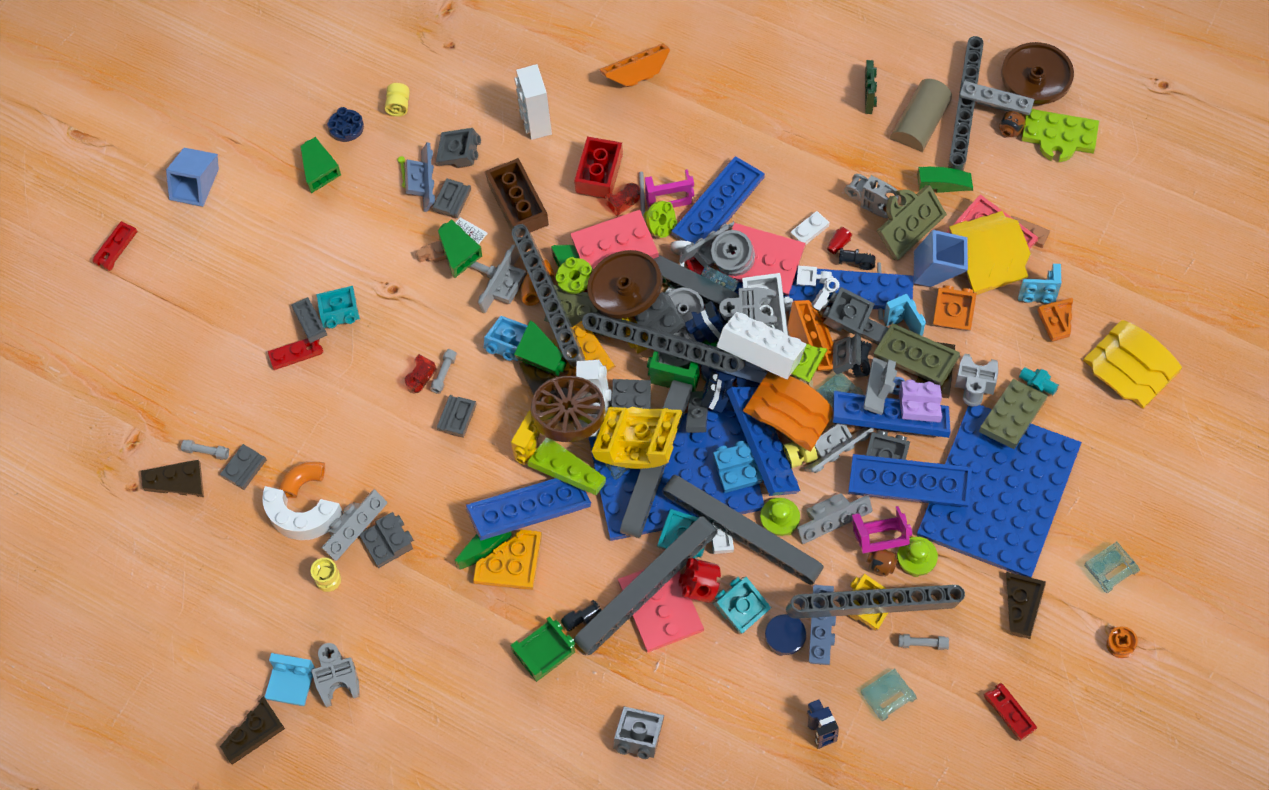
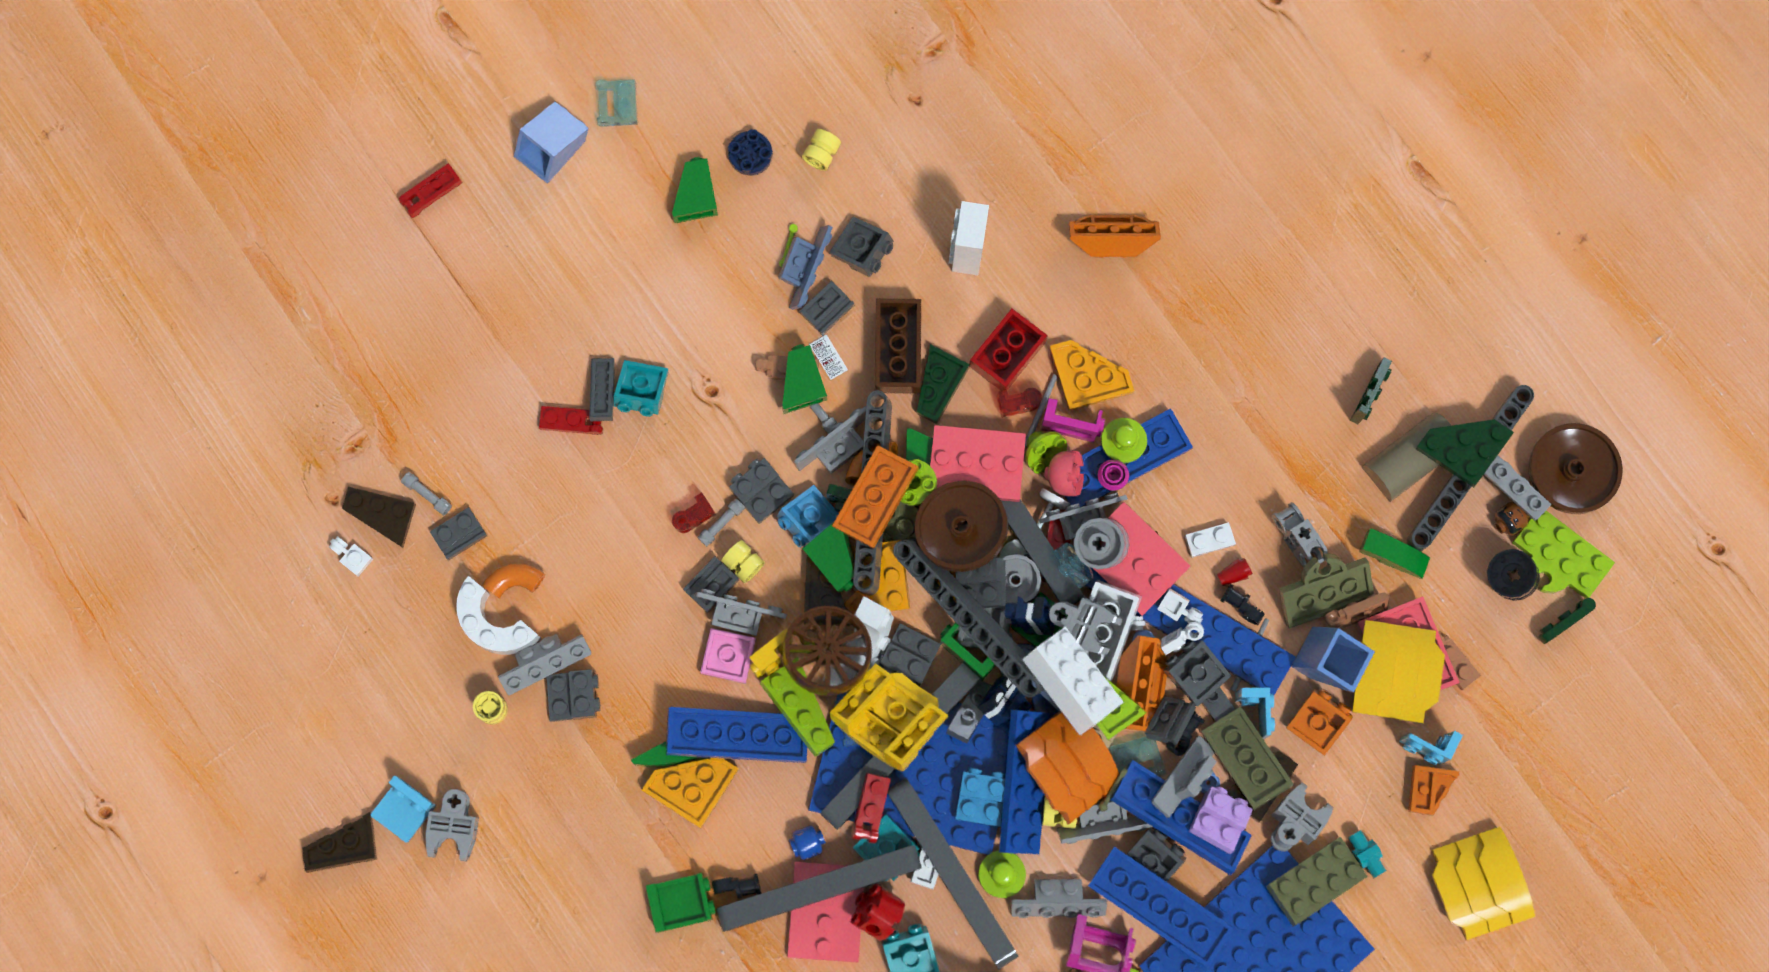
camera: 20 degrees right, 15 degrees up
(168, 520) = (354, 558): none -> white plate
(236, 131) = (624, 102): none -> clear light blue plate
(462, 336) = (760, 490): none -> dark grey plate
(471, 387) = (741, 559): none -> light yellow wheel
(488, 424) = (737, 615): none -> light grey bracket
(494, 458) = (728, 656): none -> bright pink plate
(527, 311) = (837, 495): none -> dark green piece
(551, 290) = (875, 496): none -> orange plate
(560, 211) = (940, 383): none -> dark green wing
(620, 561) = (807, 842): none -> blue head
(656, 506) = (870, 807): none -> red plate
(664, 162) = (1087, 376): none -> light orange plate
(682, 224) = (1065, 473): none -> coral cylinder
(713, 188) = (1124, 440): none -> lime plate
(717, 210) = (1115, 471): none -> dark pink cone
(830, 429) = (1103, 806): none -> olive hinge
(945, 220) = (1358, 611): none -> nougat hinge
(955, 88) = (1466, 448): none -> dark green plate
(1032, 144) = (1509, 562): none -> black wheel
(1088, 169) = (1567, 619): none -> dark green plate

